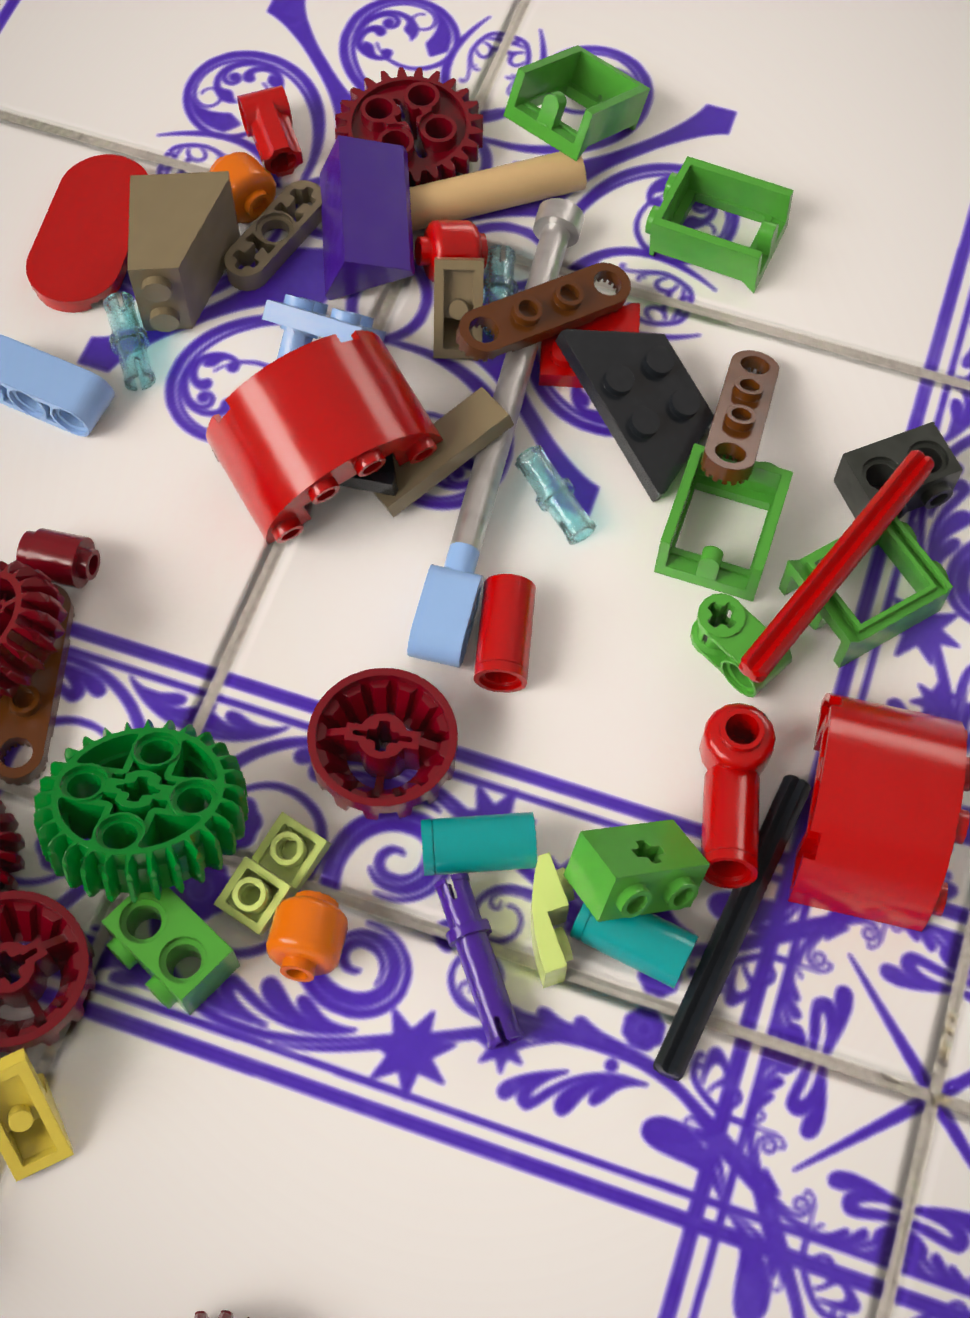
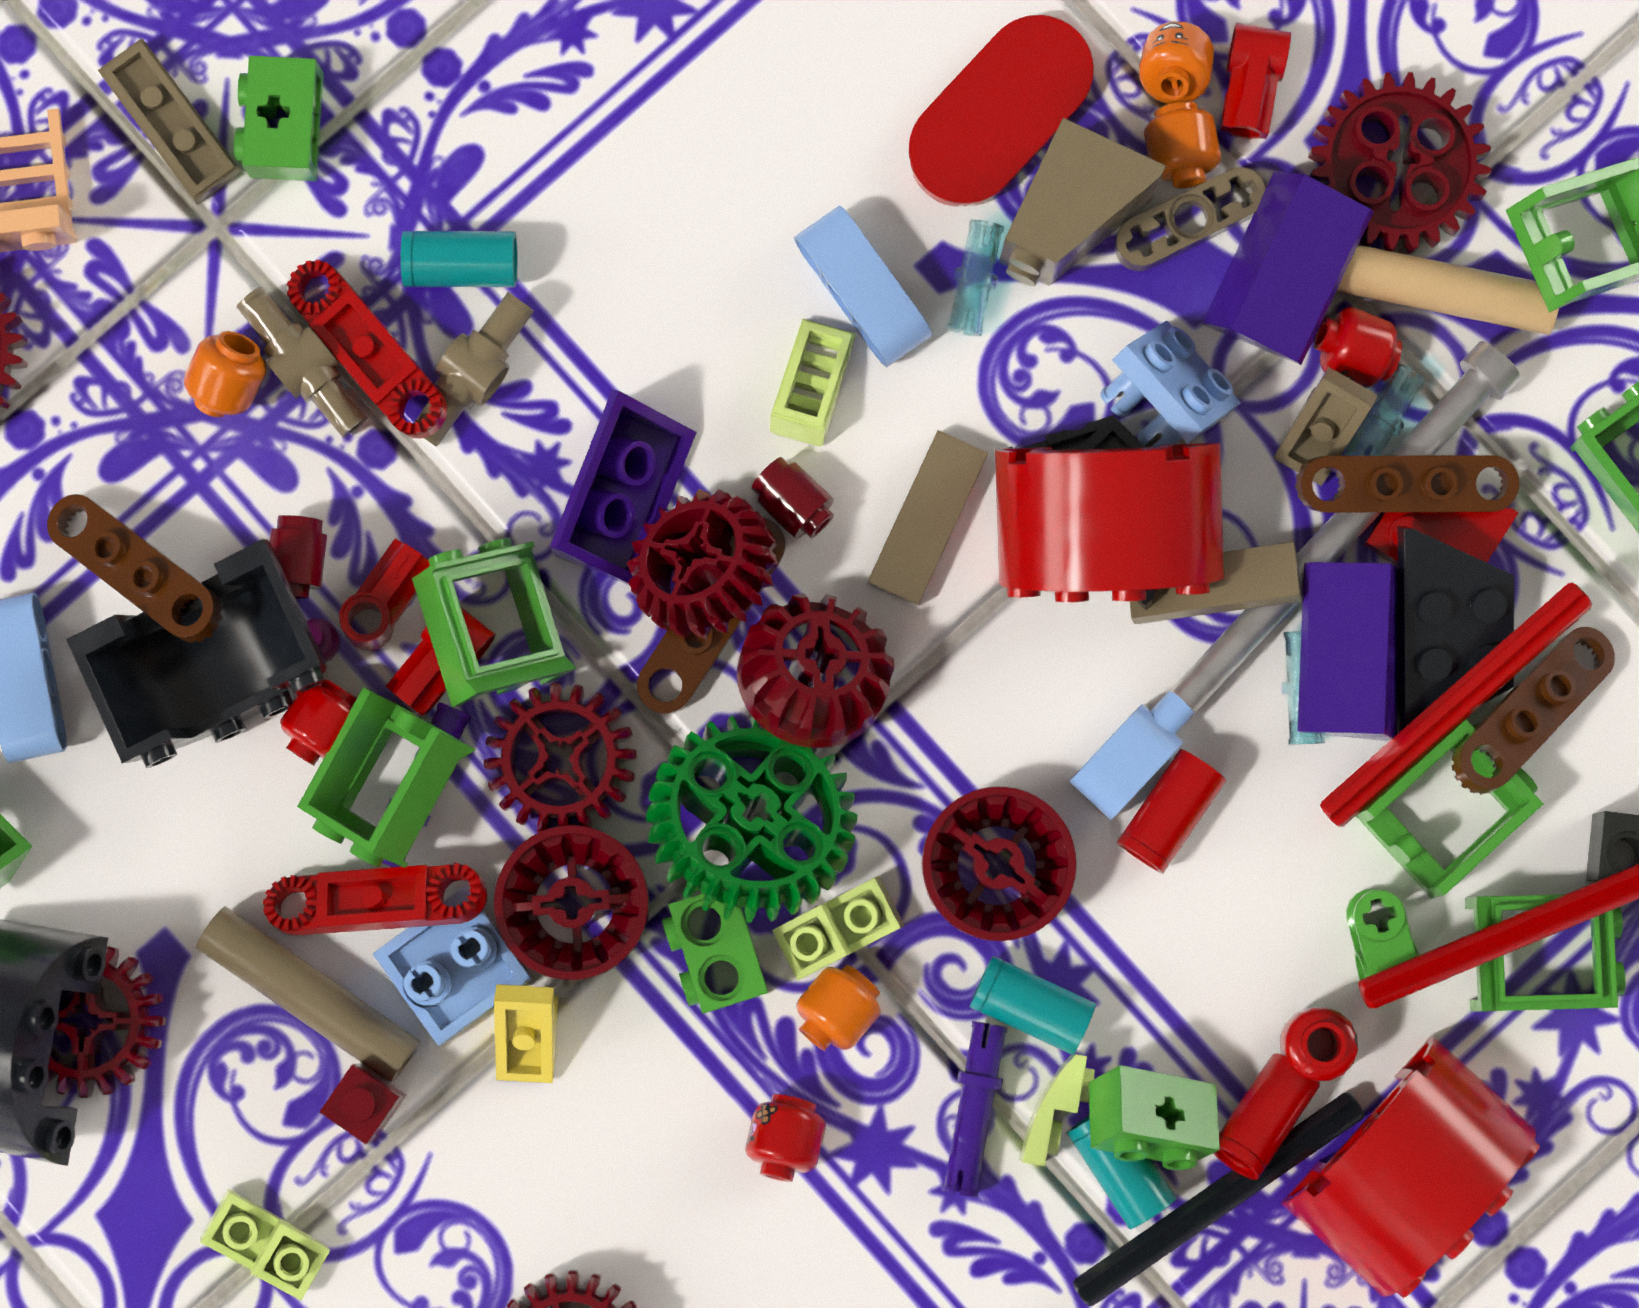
camera: 30 degrees right, 20 degrees up
(33, 478) = (814, 416): none -> yellowish green slope
(143, 685) = (796, 700): none -> dark red gear
(181, 524) = (927, 518): none -> dark tan tile
(204, 119) = (1176, 62): none -> orange head
(318, 1077) = (785, 1137): none -> red head
(573, 443) = (1349, 650): none -> dark purple slope
(678, 442) = (1456, 704): none -> red axle

